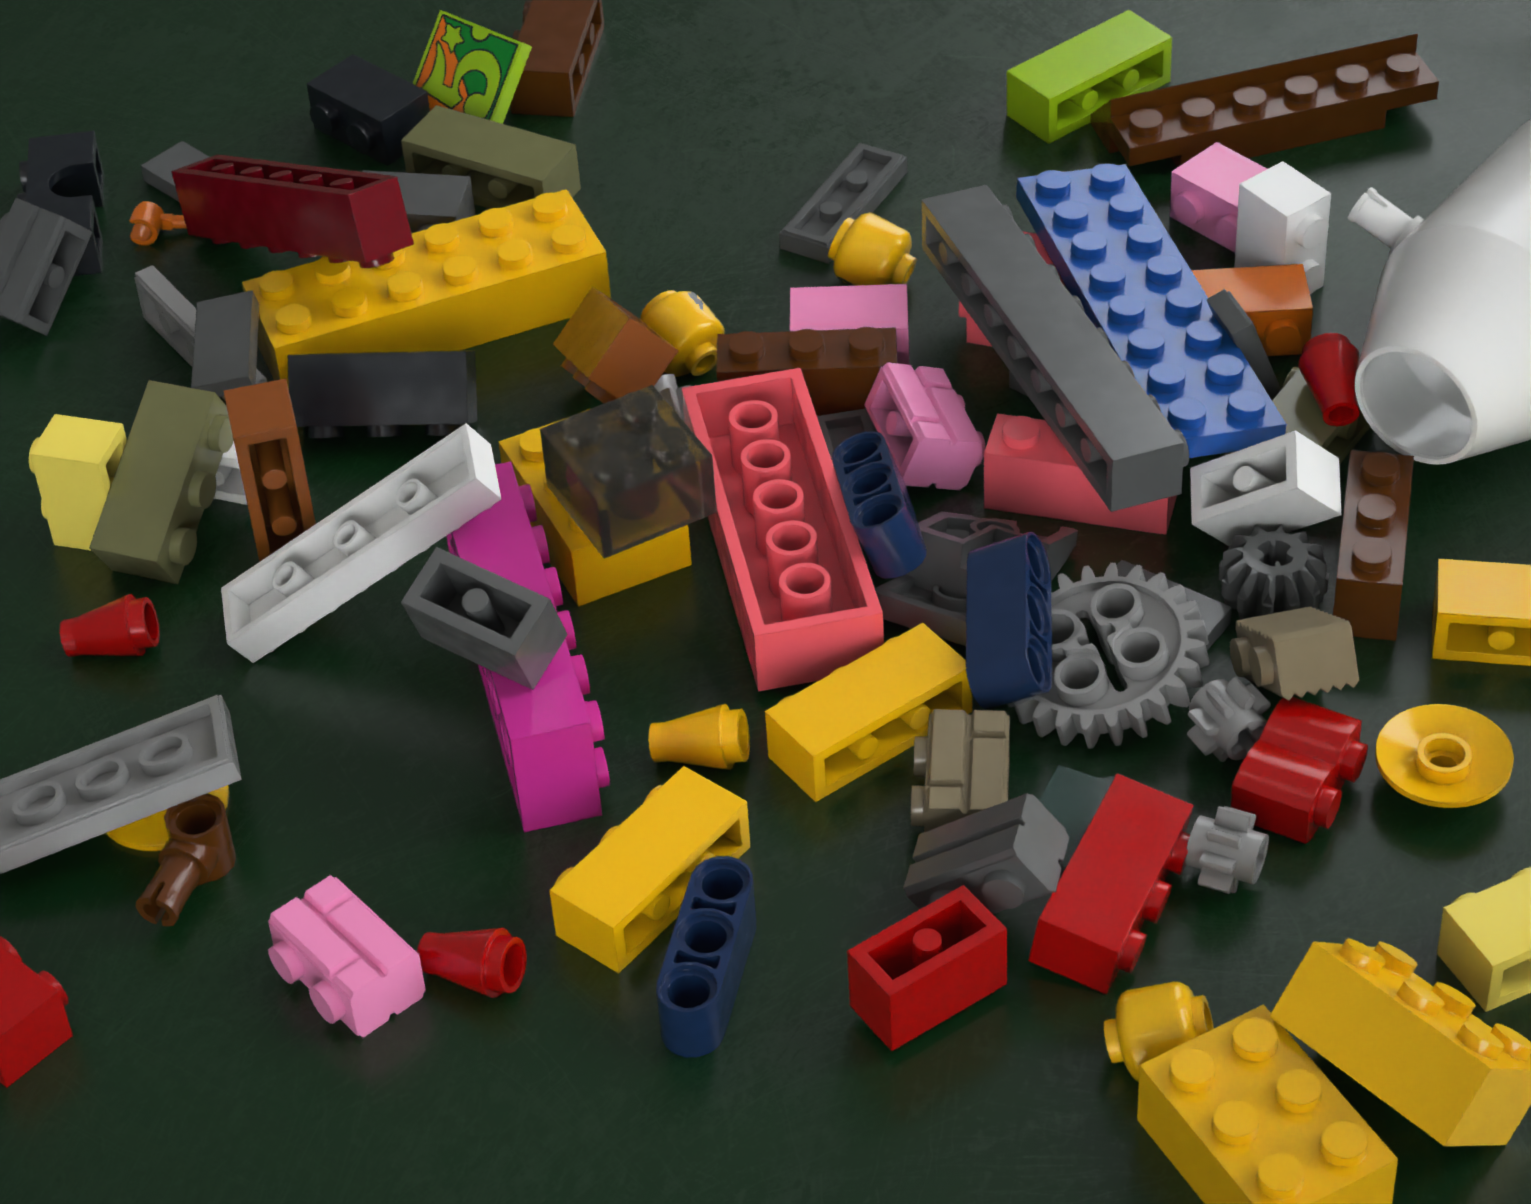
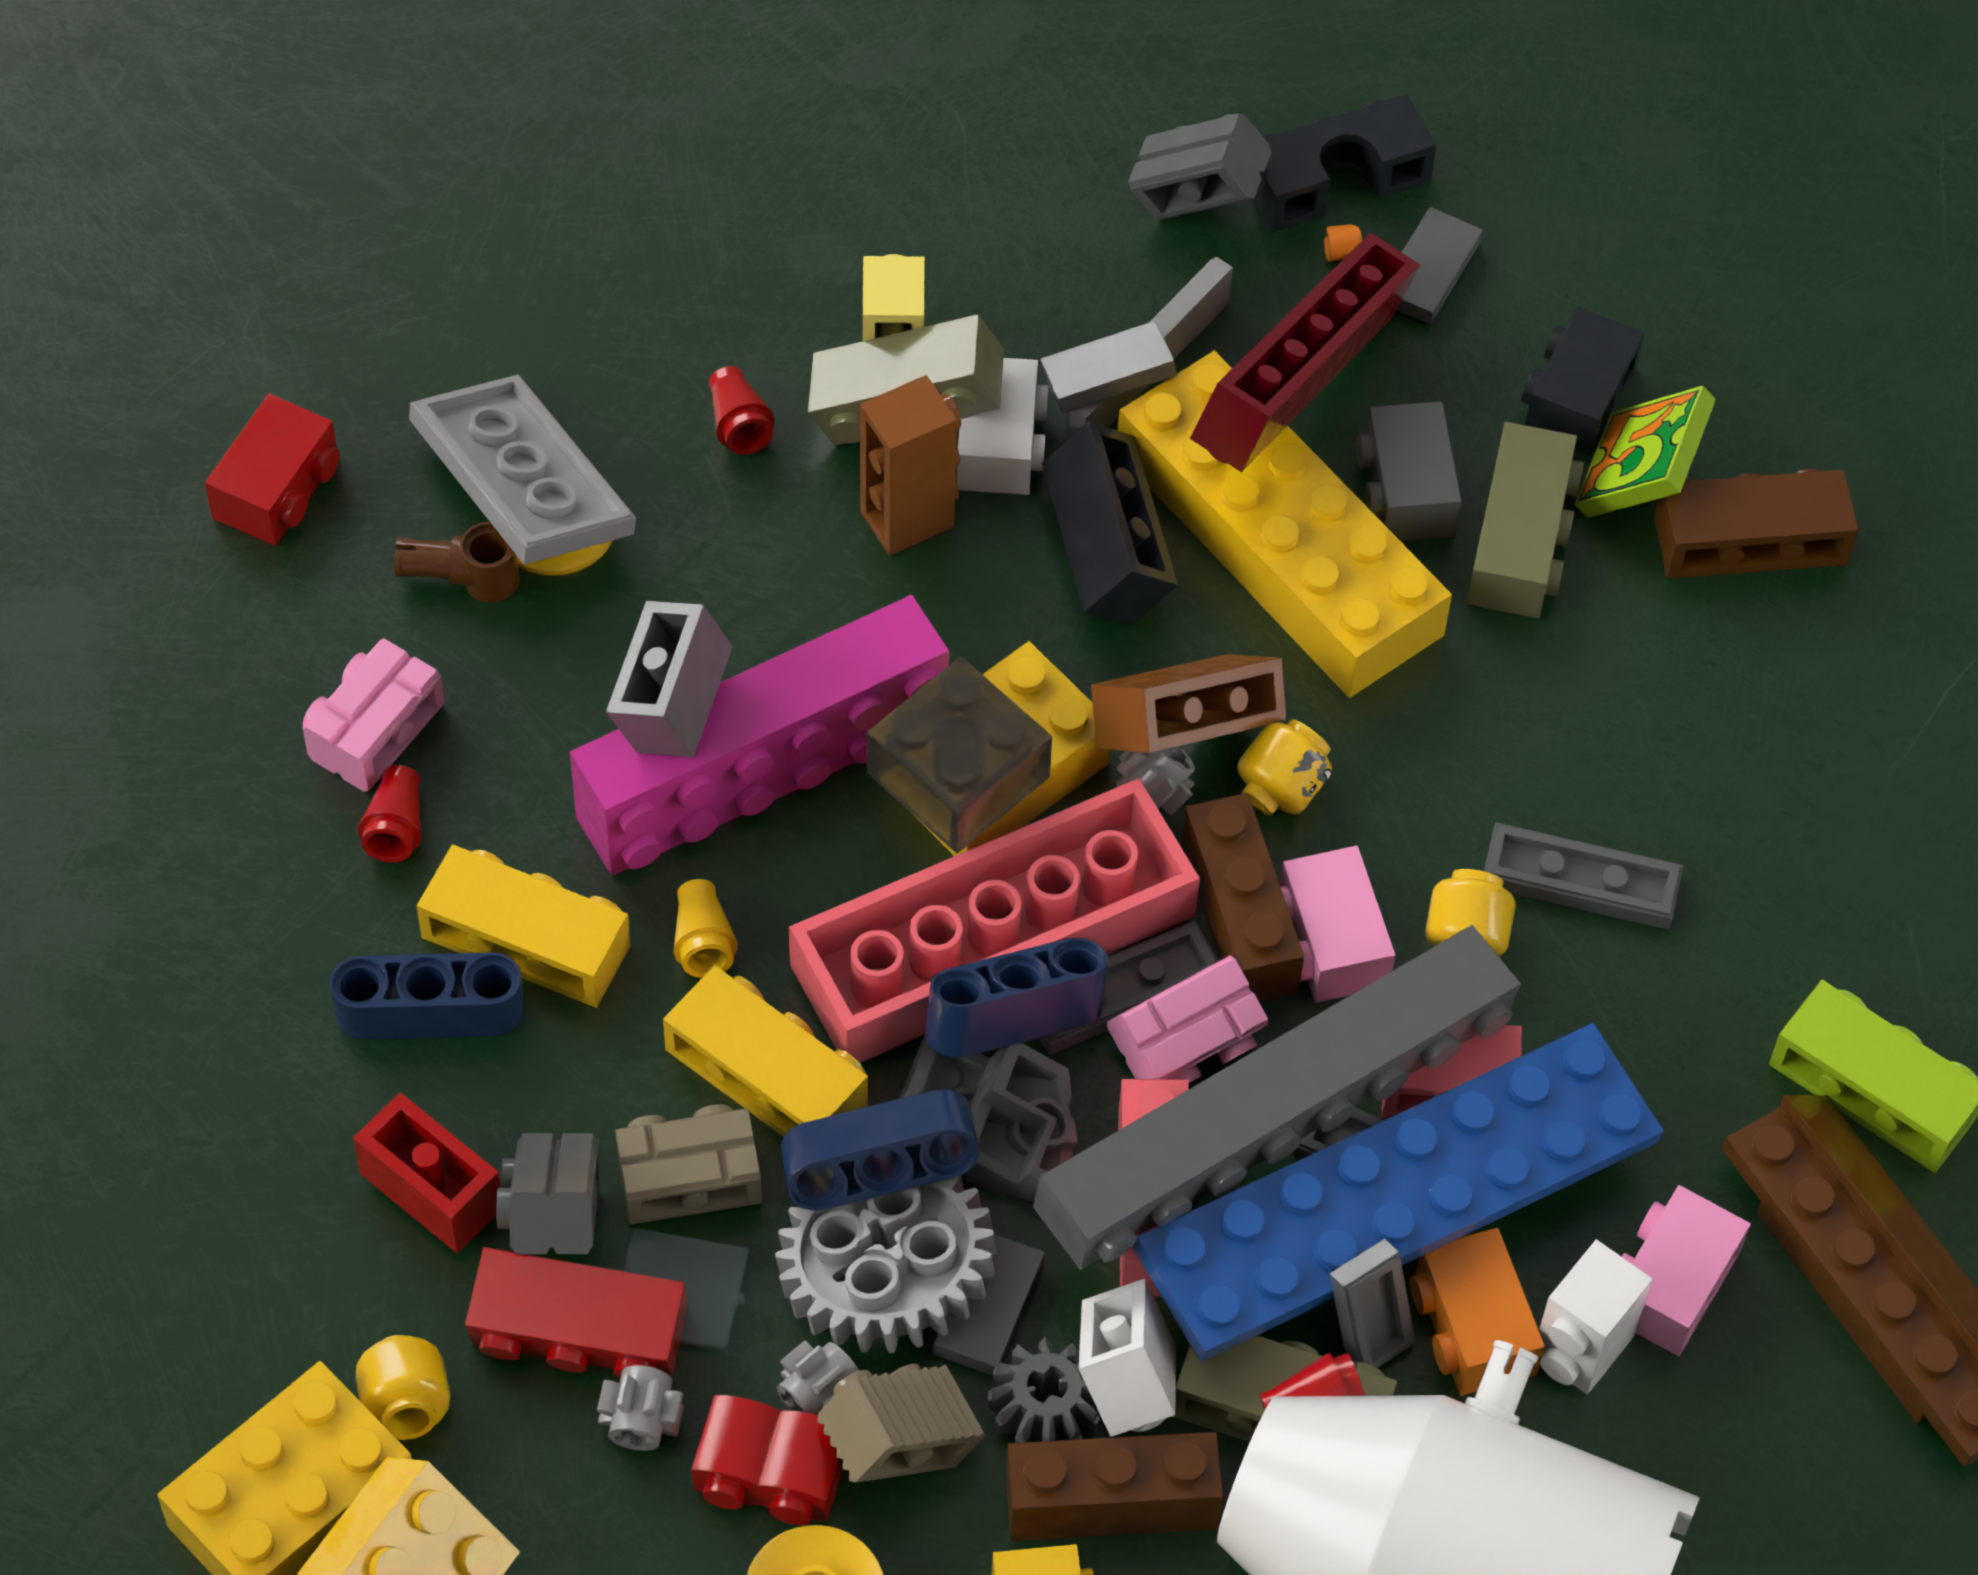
camera: 70 degrees right, 15 degrees up
(360, 543) = (827, 564): white piece -> none

